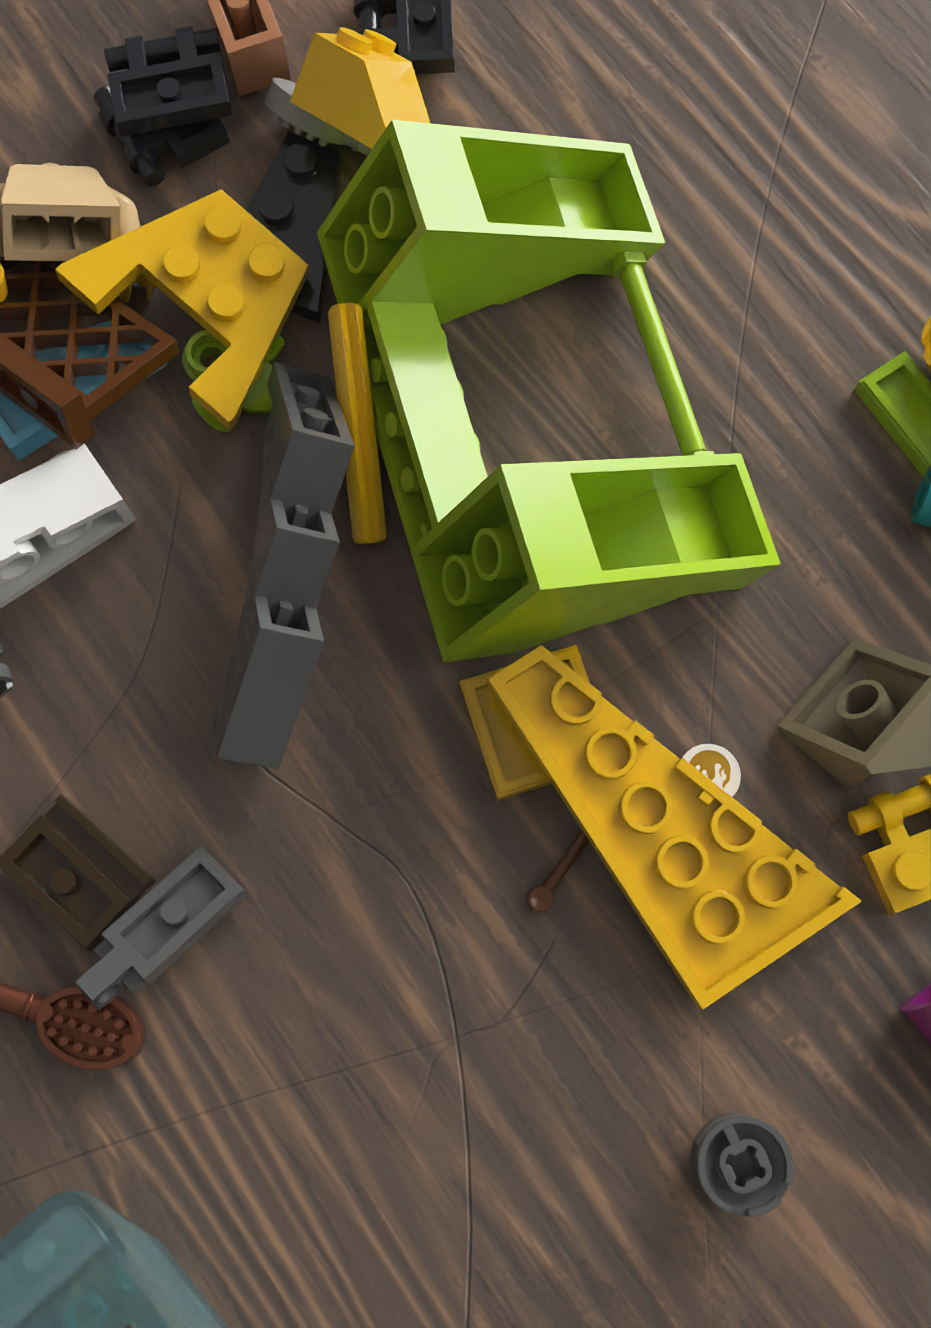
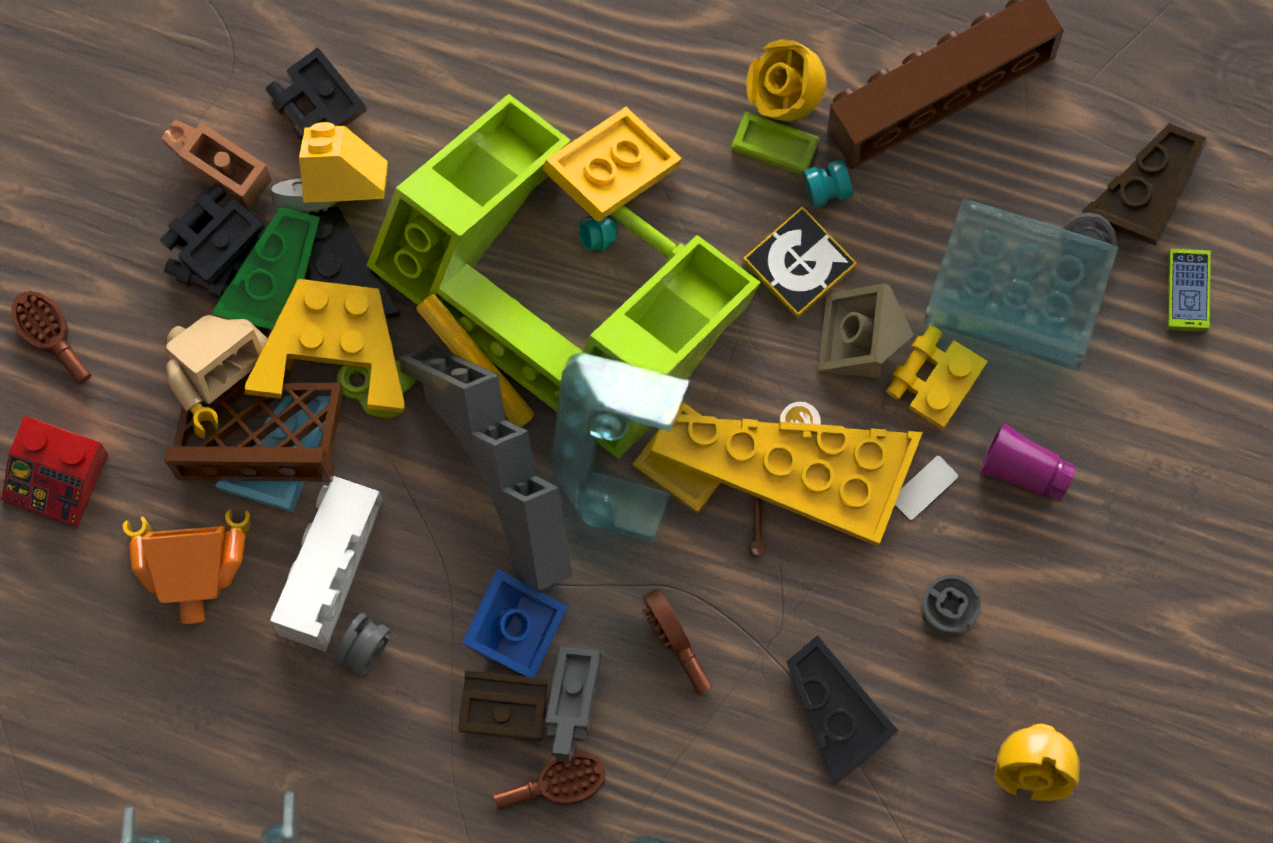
camera: 35 degrees left, 0 degrees up
(163, 779) = (514, 625): none -> blue slope
(224, 152) = (270, 270): none -> green wing
(348, 942) = (675, 638): none -> copper piece
(447, 563) = (601, 401): none -> clear light blue windscreen
(492, 1203) = (839, 709): none -> black wing
(622, 374) = (596, 234): none -> teal plate
(693, 300) = (611, 164): none -> yellow plate
(815, 974) = (925, 487): none -> white sticker
(847, 576) = (799, 262): none -> tile

